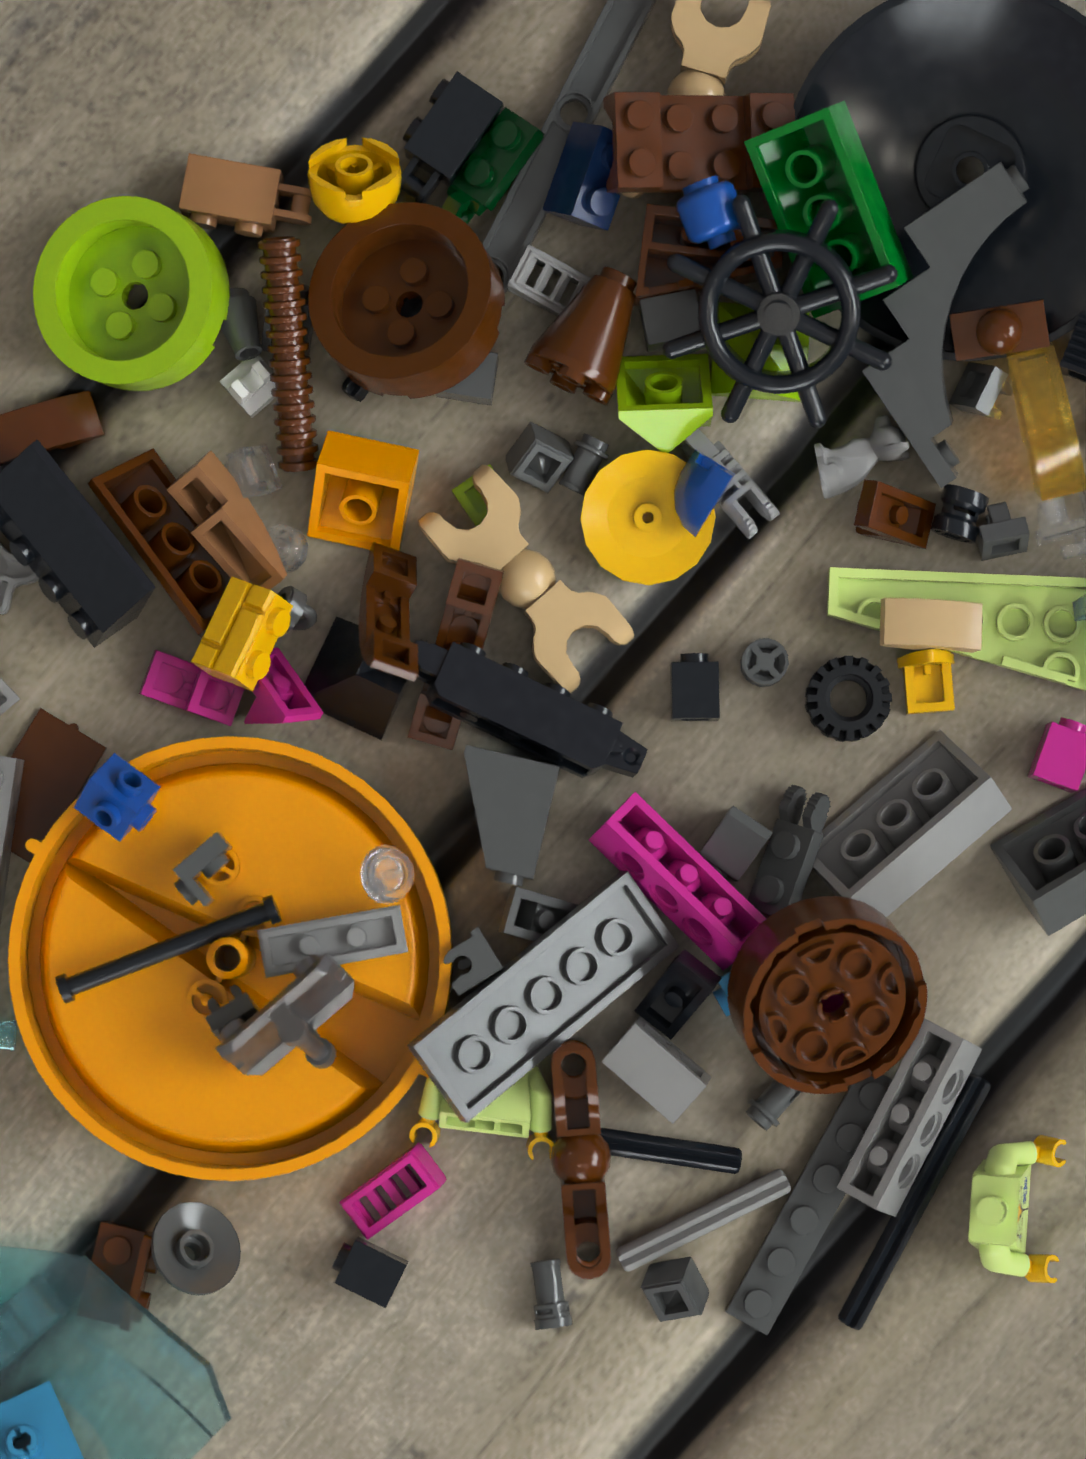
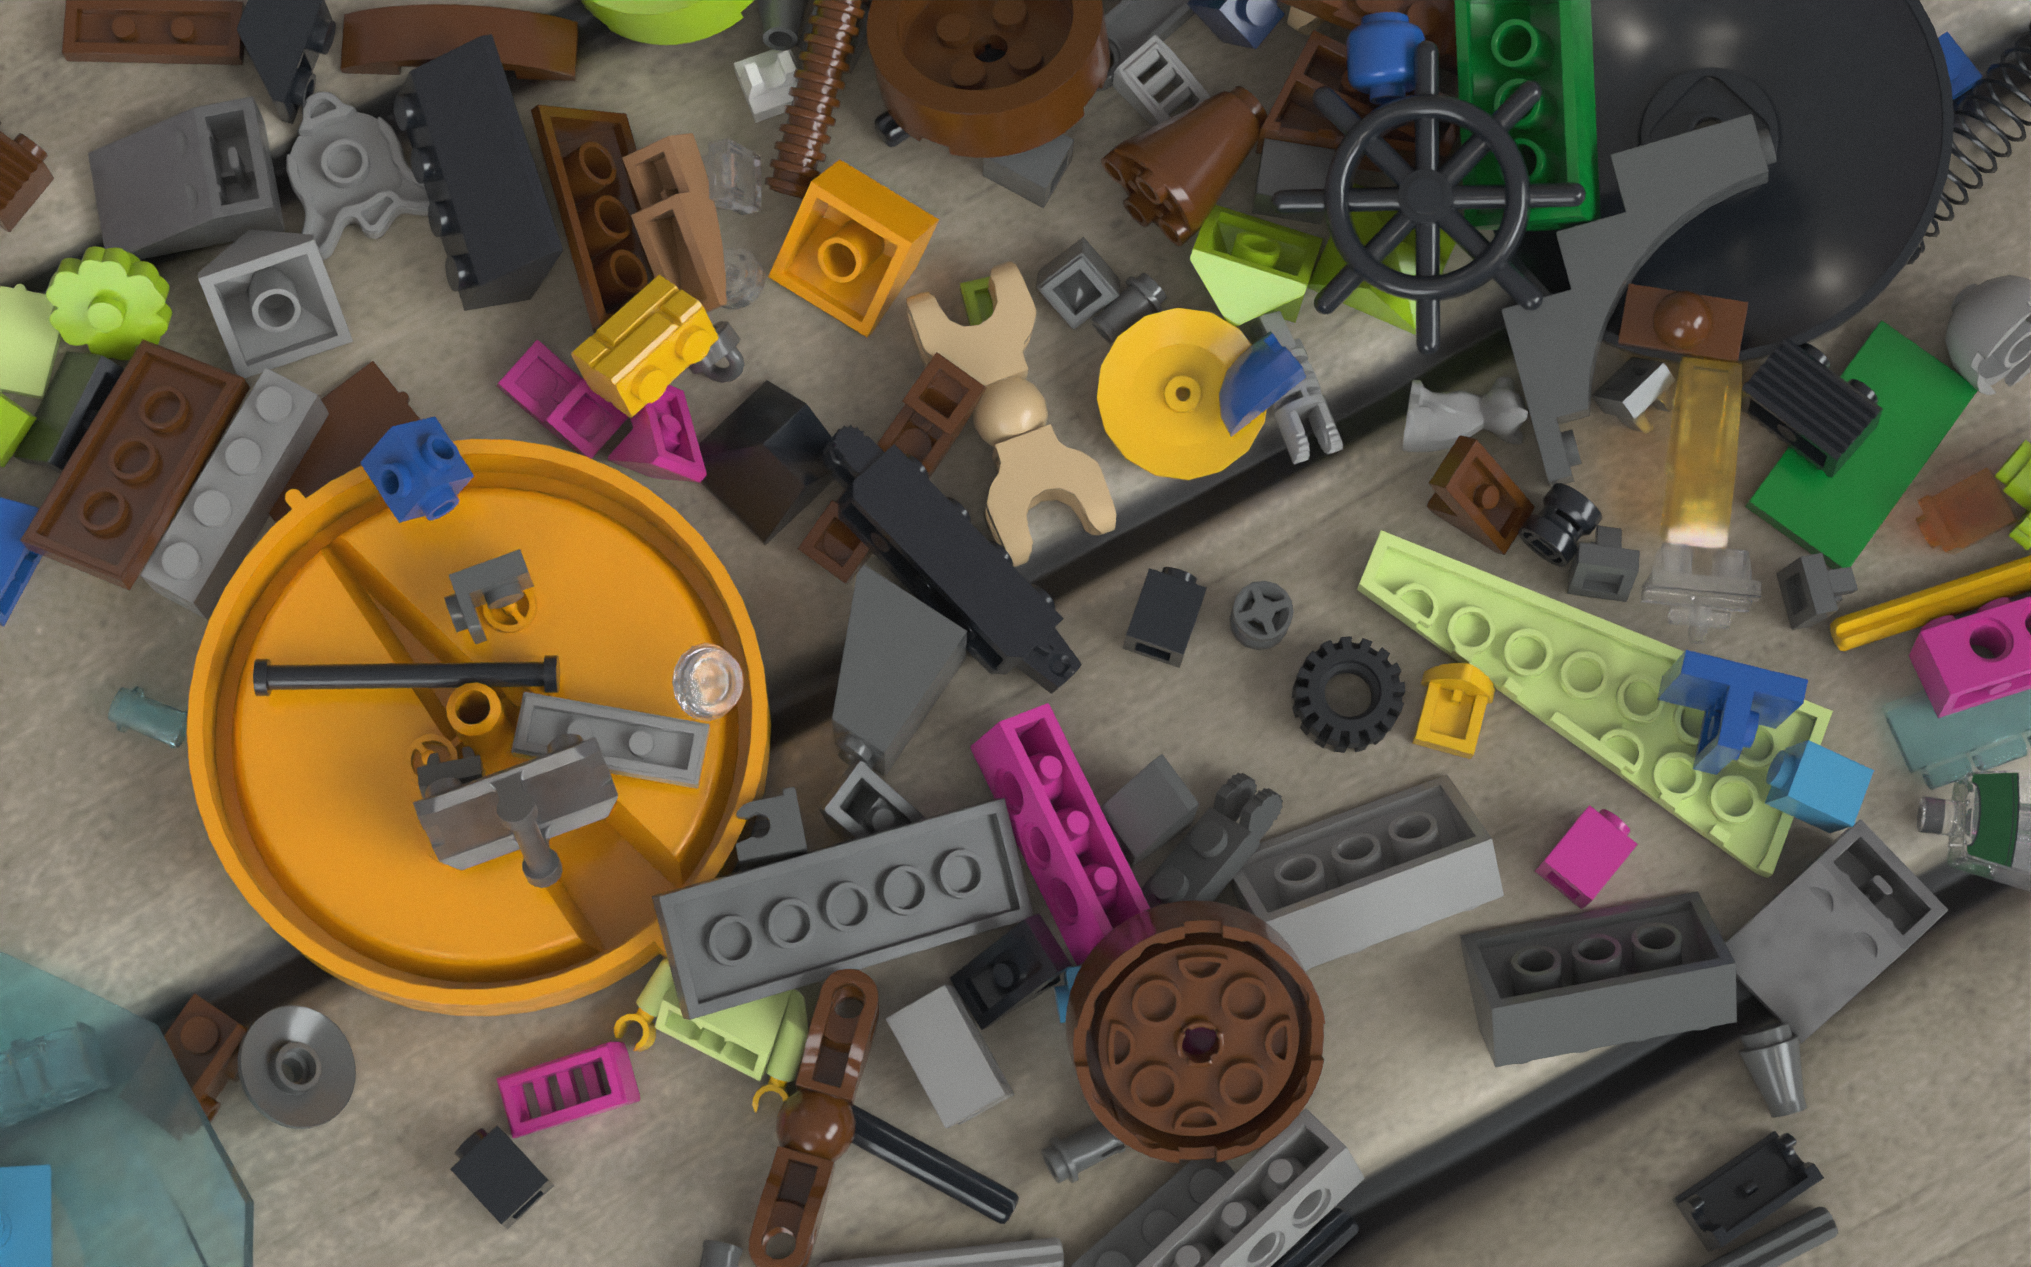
camera: 10 degrees right, 10 degrees down
(385, 612) = (830, 381): reddish brown slope -> none
(931, 624) = (1482, 634): tan slope -> none

